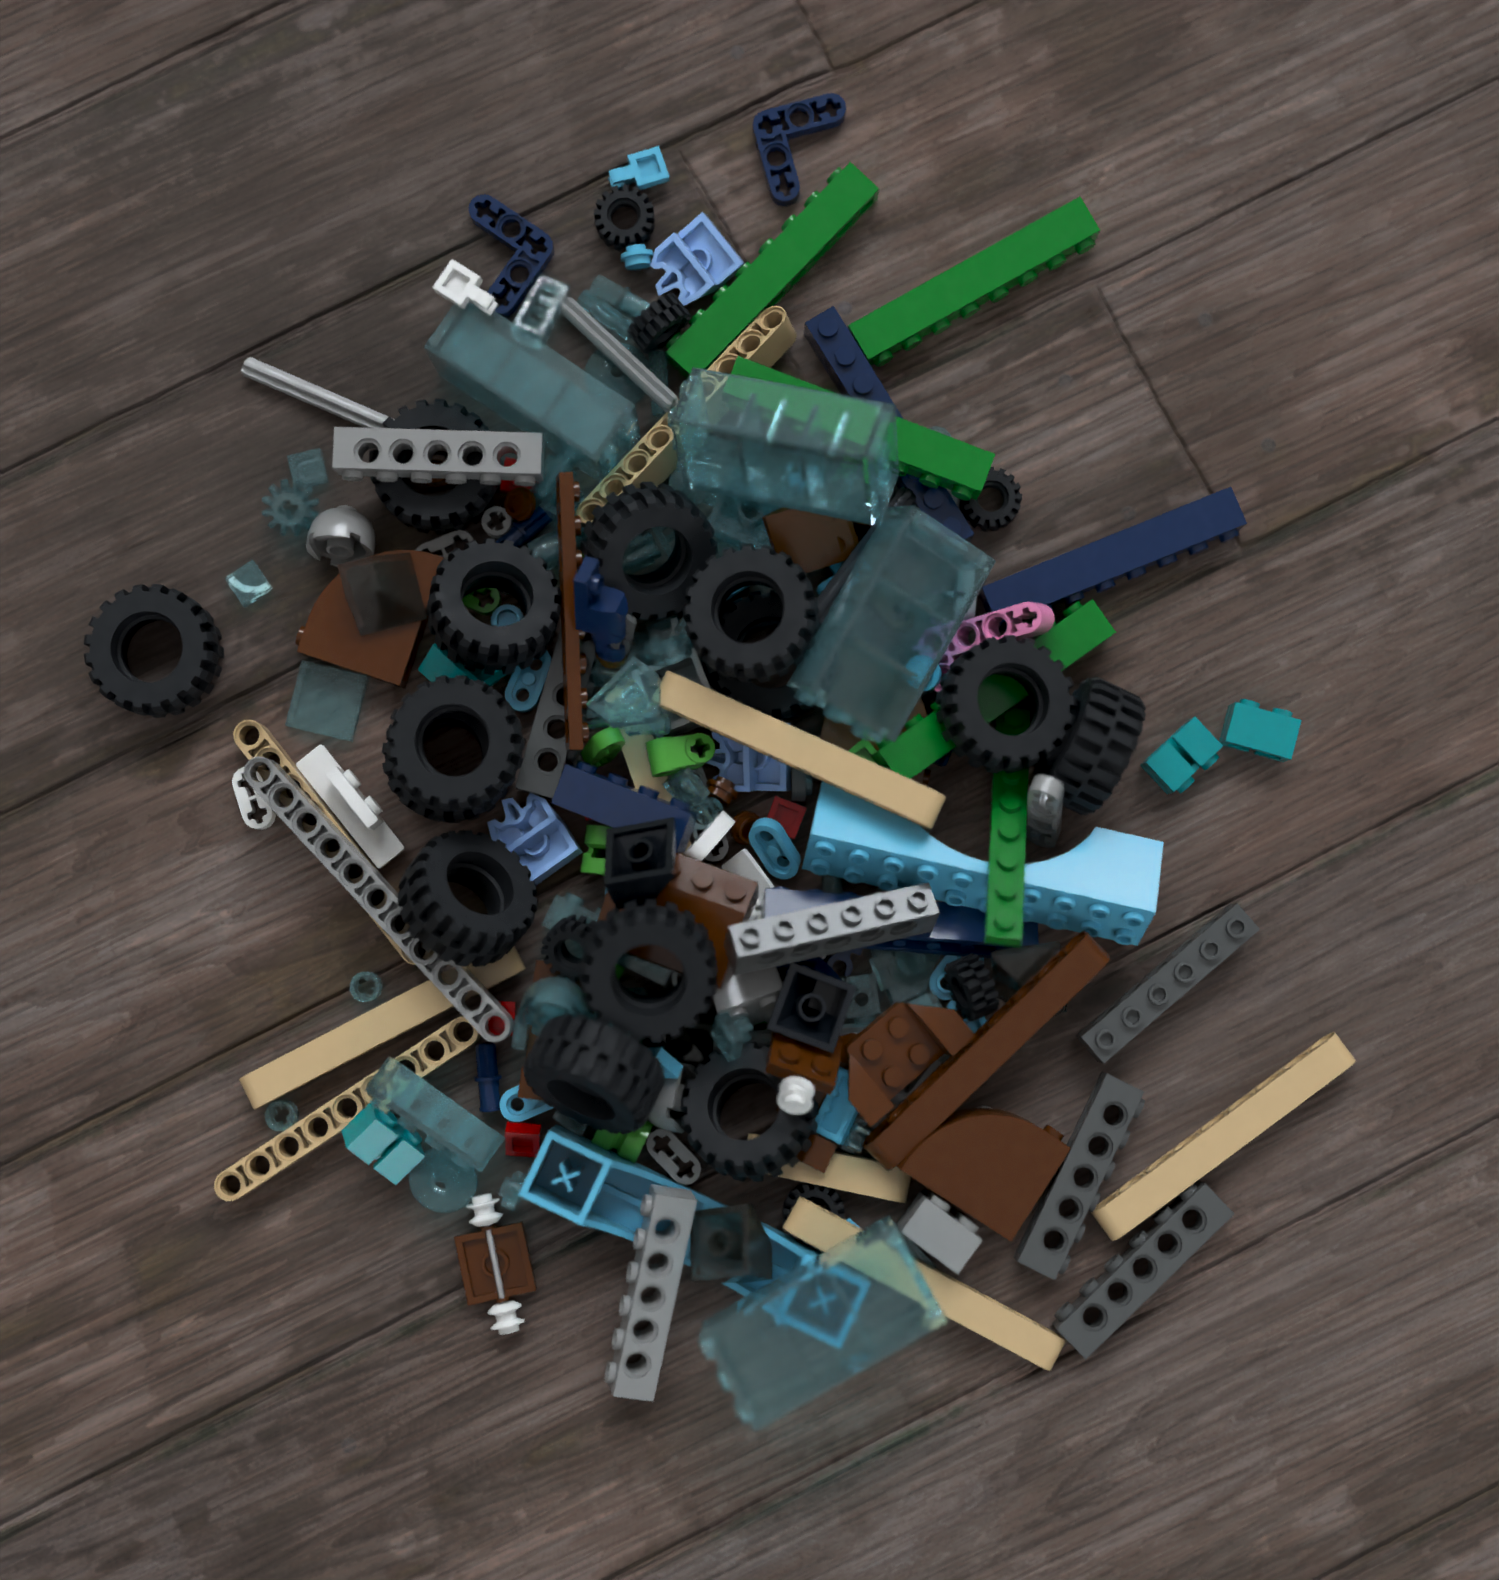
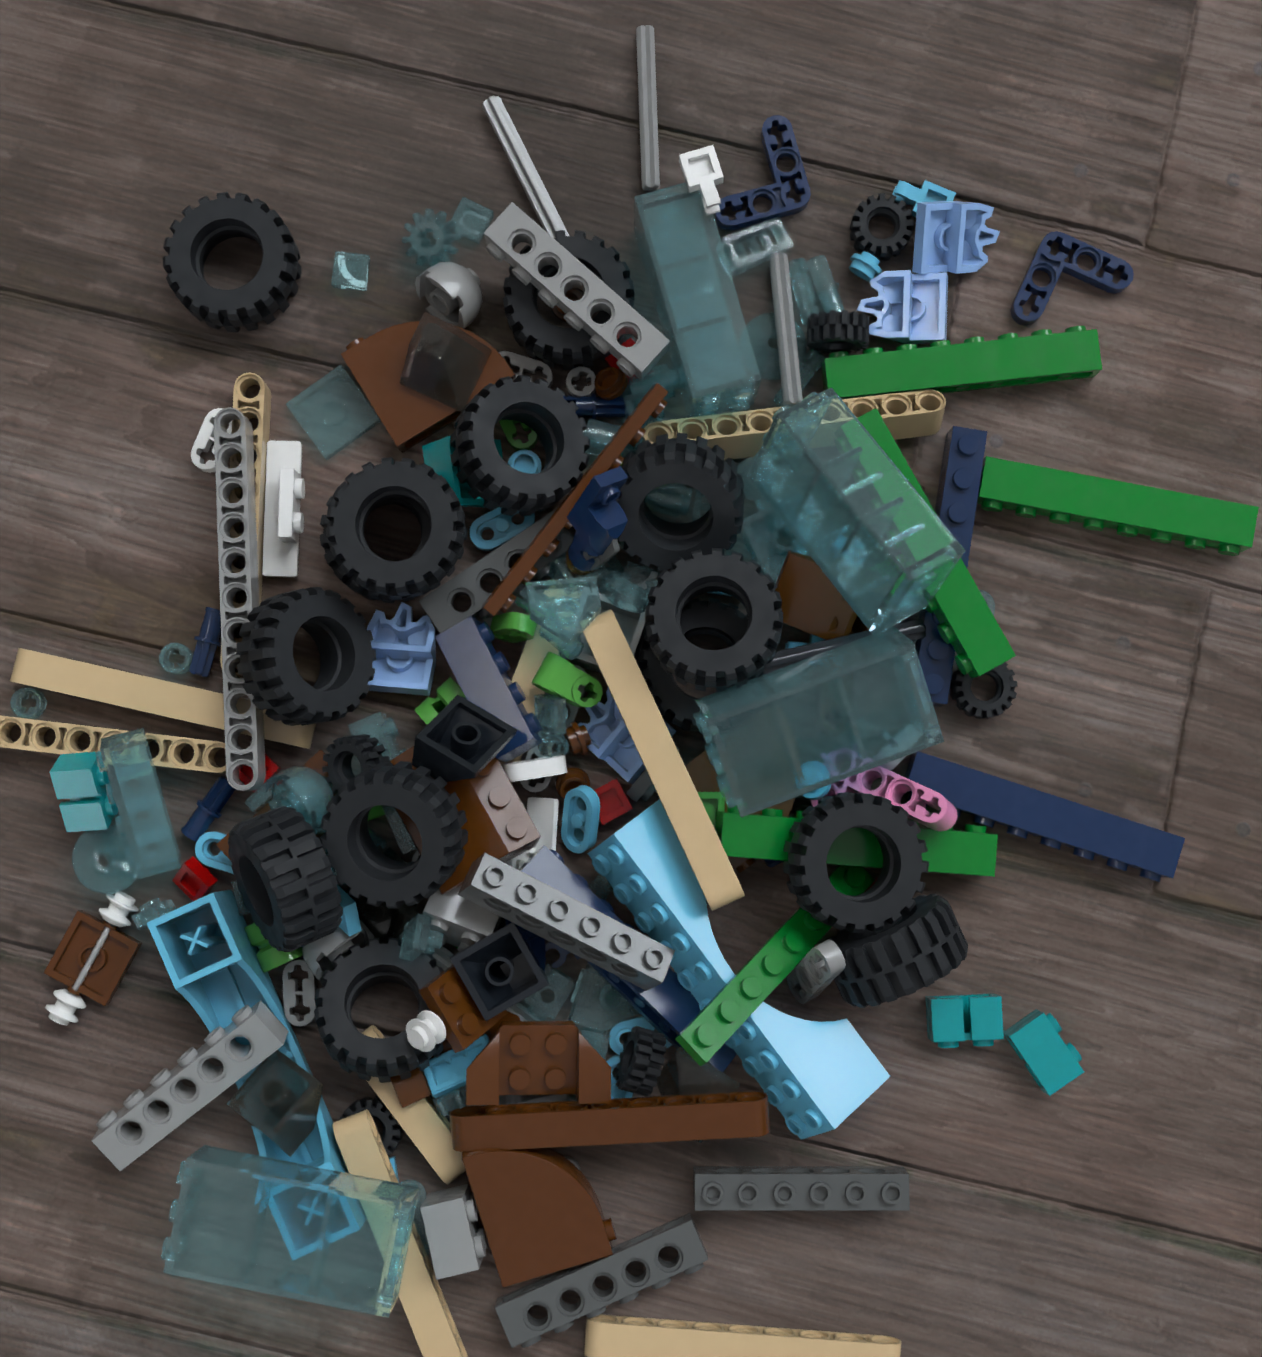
camera: 40 degrees right, 0 degrees up
(371, 272) = (648, 108): none -> light grey axle
(379, 954) = (206, 643): none -> dark blue axle
(683, 181) = (951, 237): none -> light blue plate

